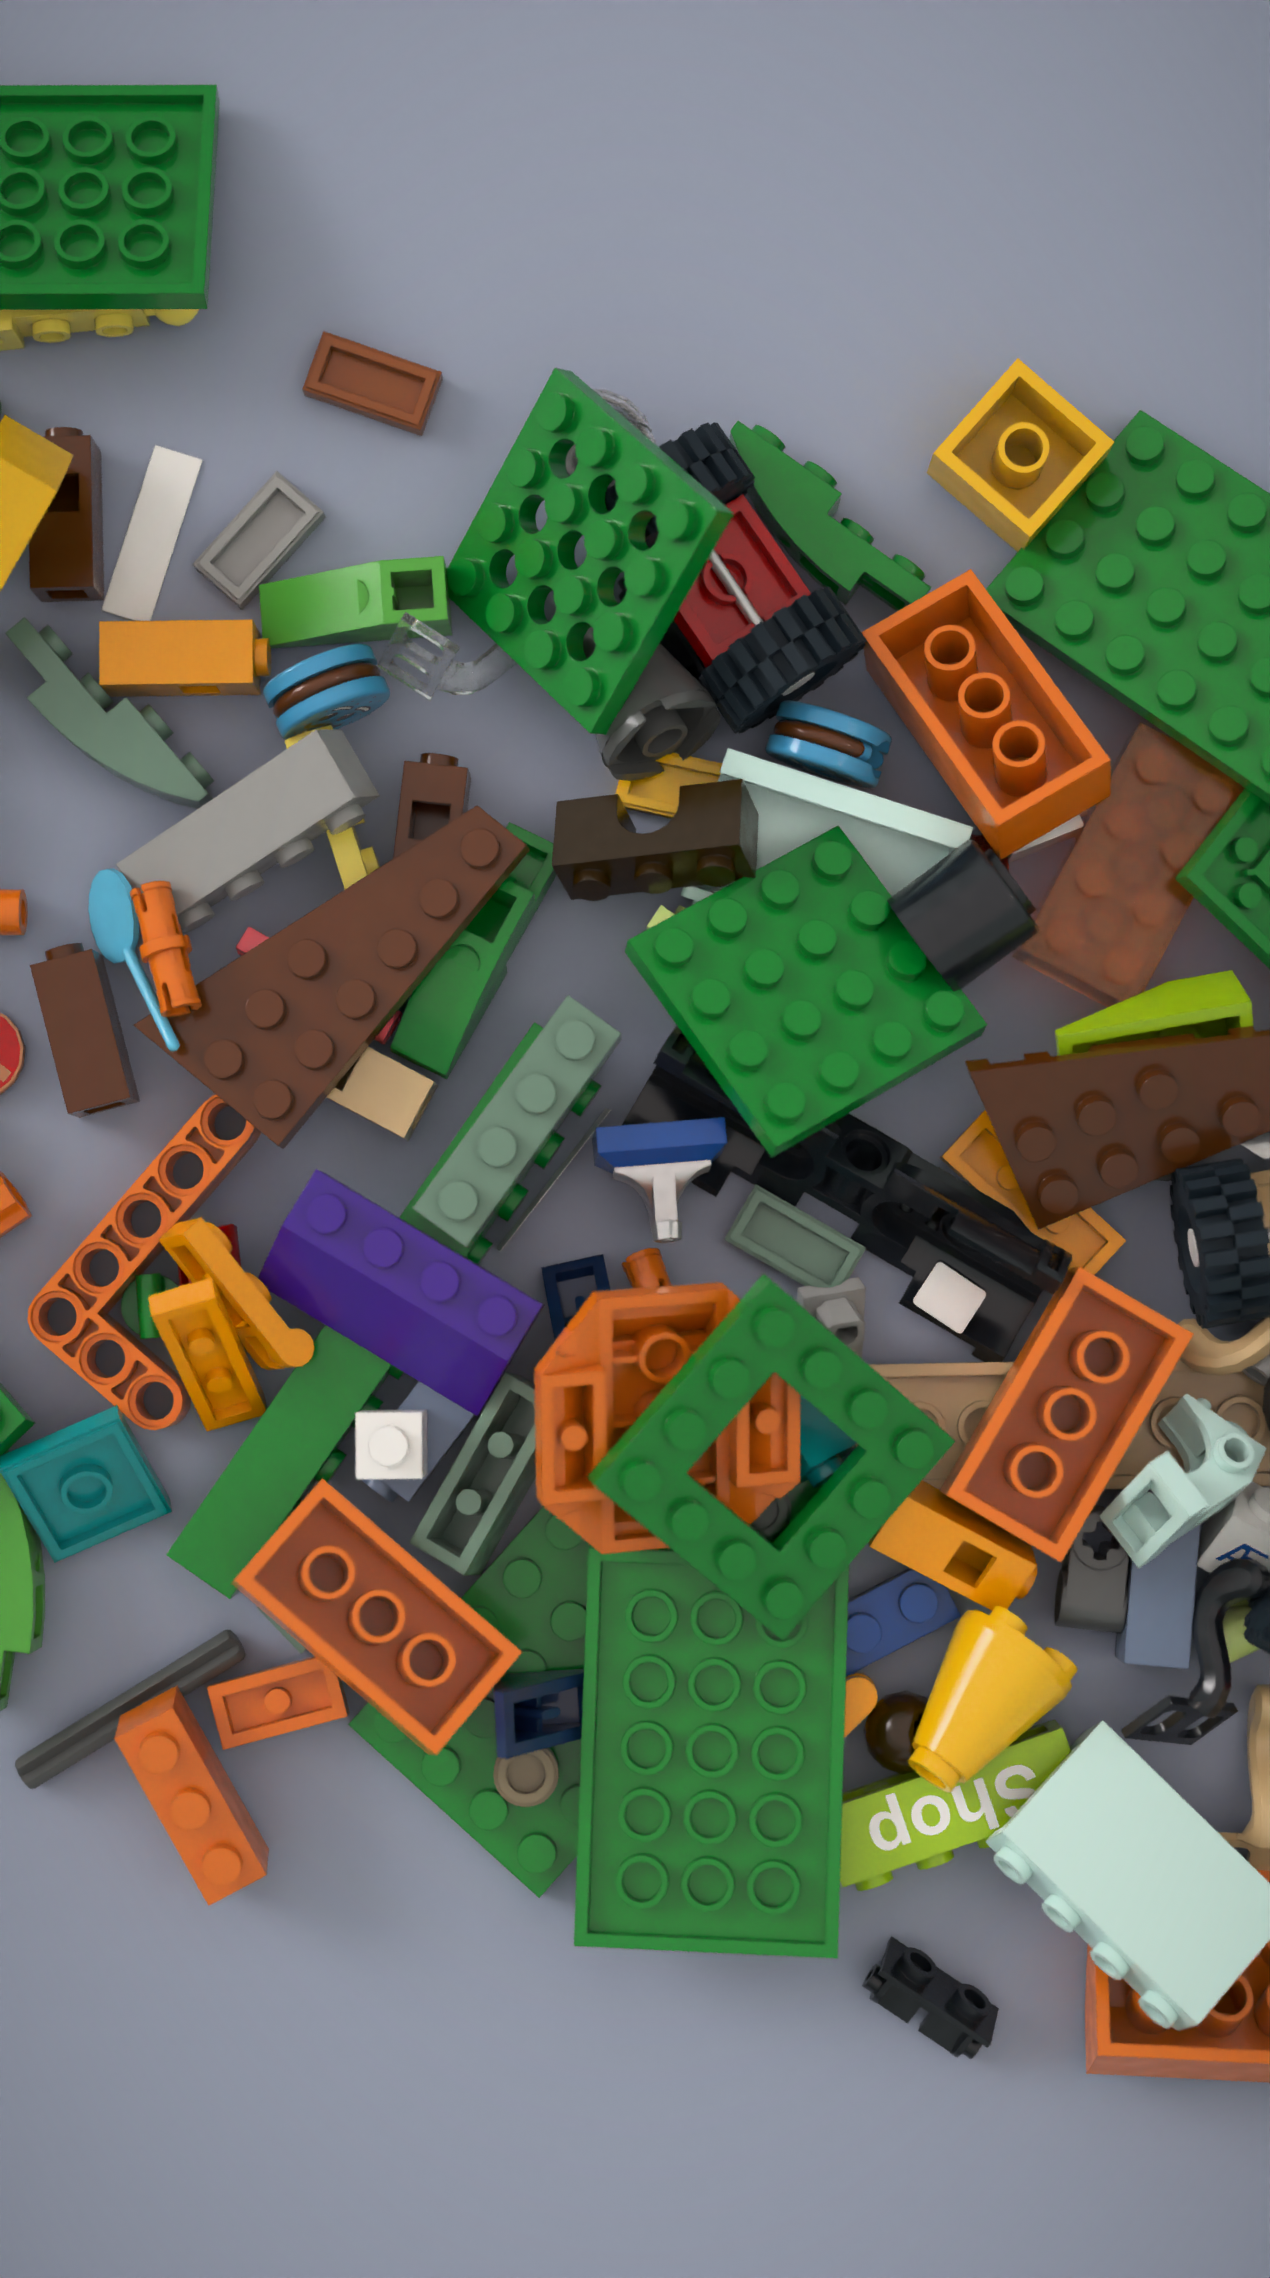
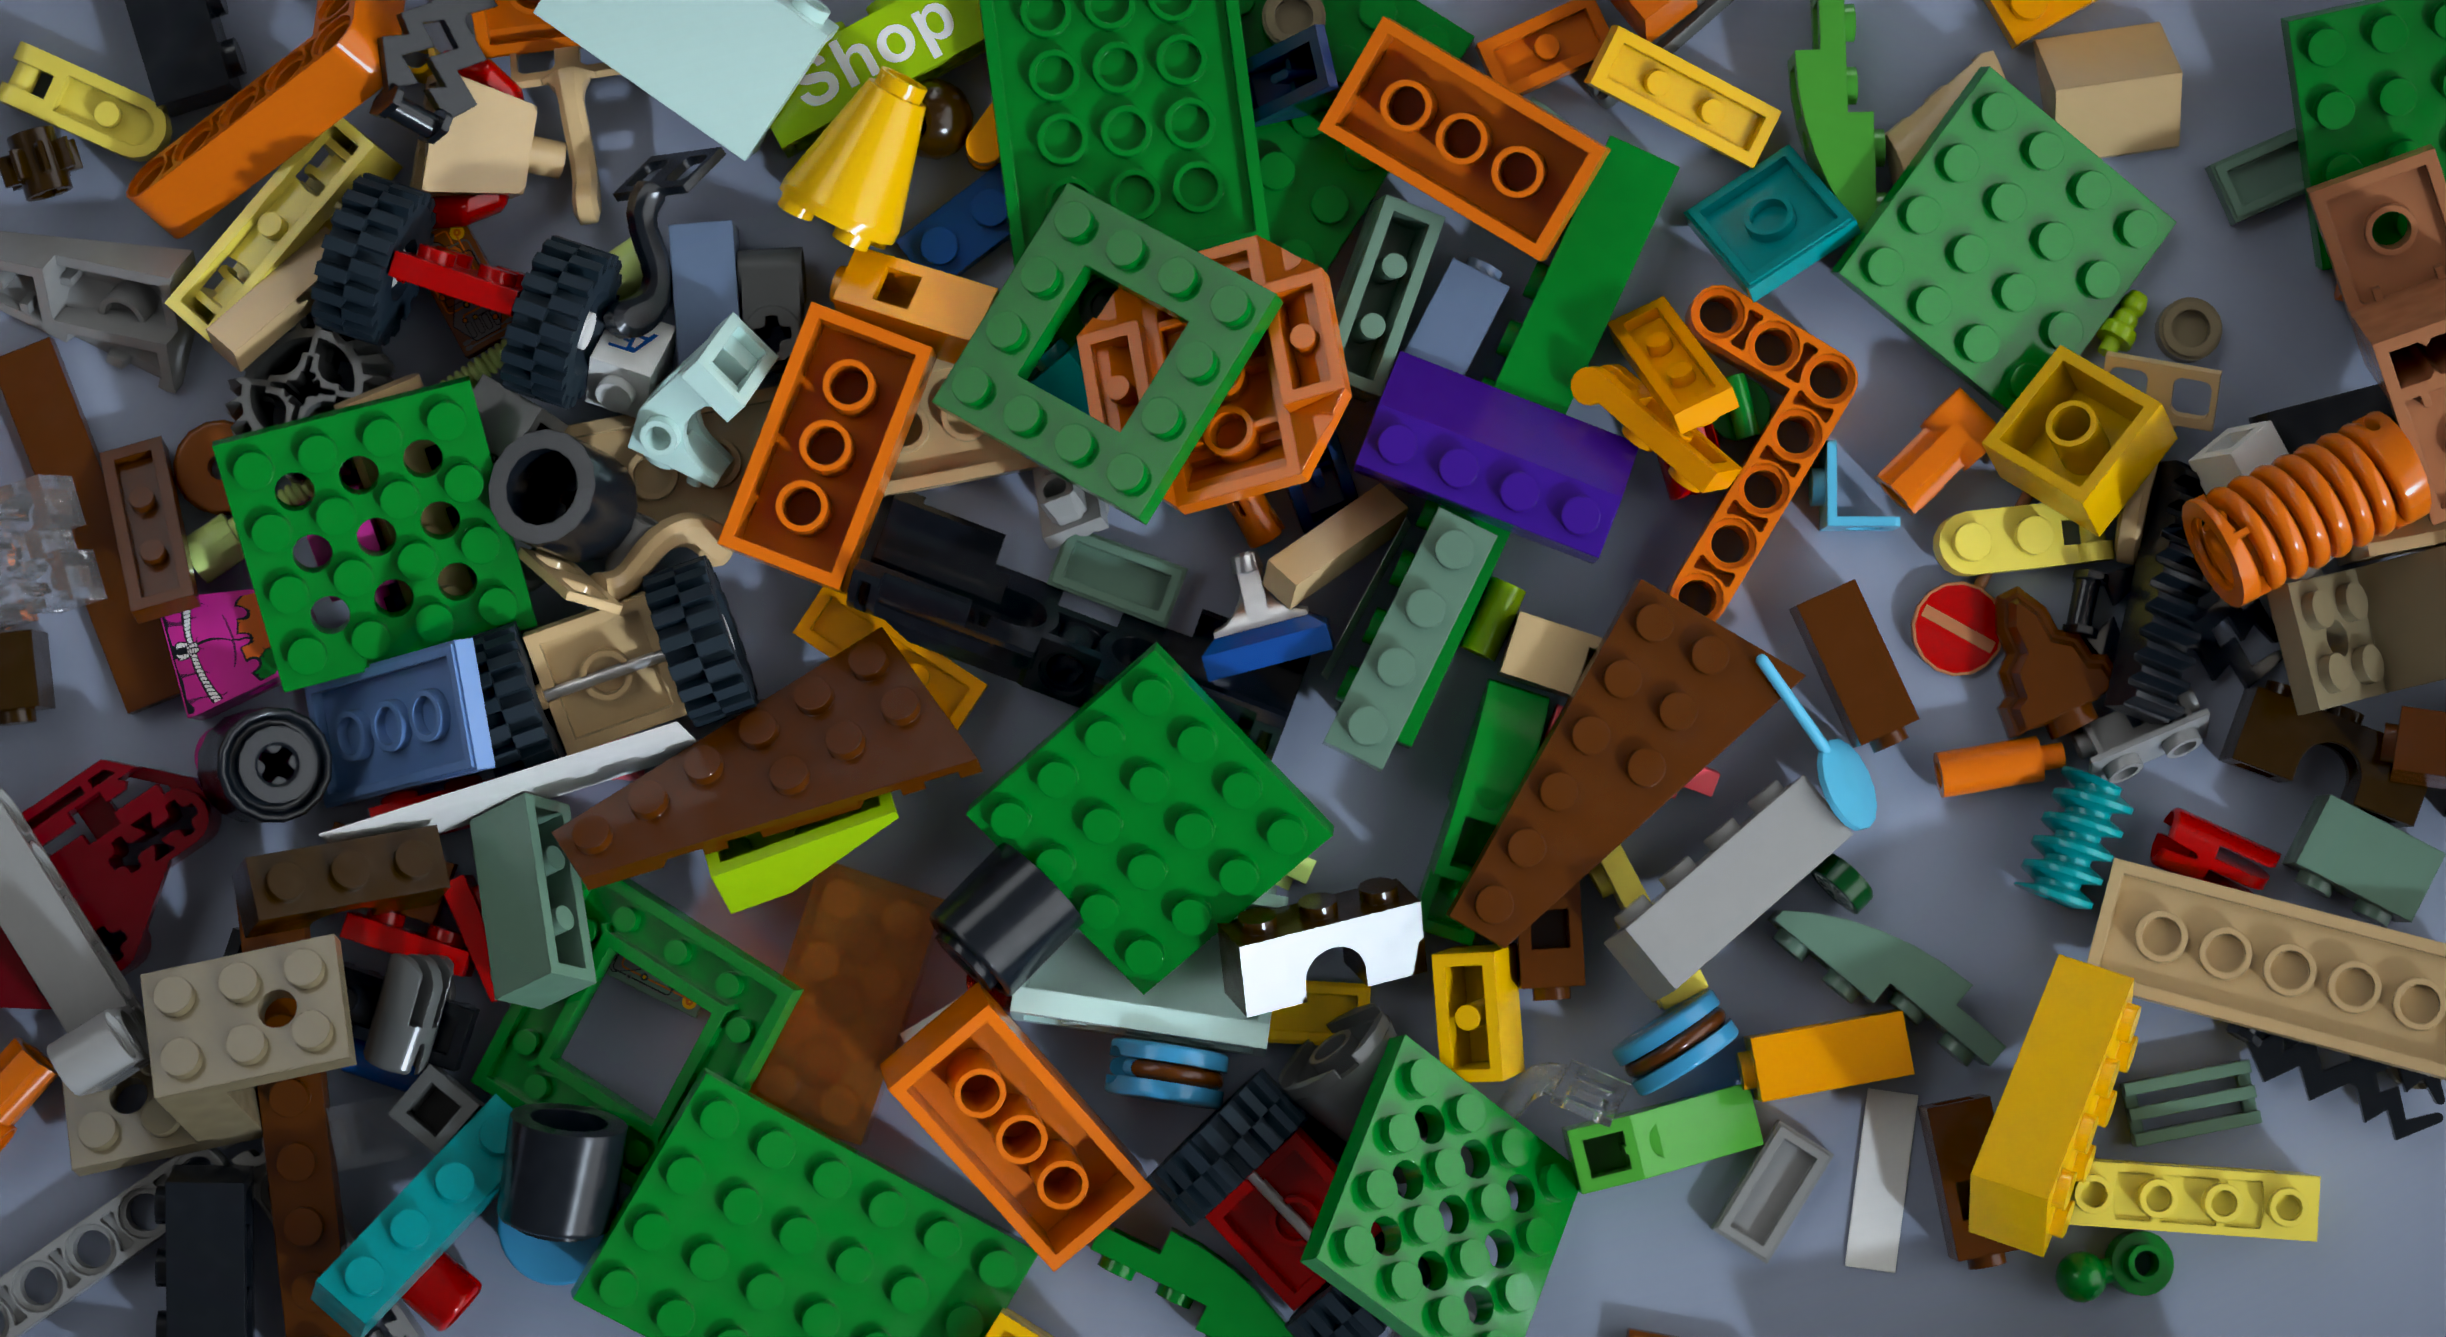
camera: 170 degrees right, 0 degrees up
(83, 1206) = (1823, 493): none -> medium azure bracket
(133, 819) = (1843, 883): none -> dark green tile
(151, 1627) = (1682, 96): none -> yellow plate
(165, 948) = (1786, 754): orange pin -> none
(391, 1444) = (1478, 307): white brick -> none
(431, 1138) = (1493, 619): none -> lime piece
(514, 752) = (1478, 1012): none -> yellow brick
(576, 1233) = (1334, 546): none -> tan piece
(949, 1297) = (957, 547): white sticker -> none

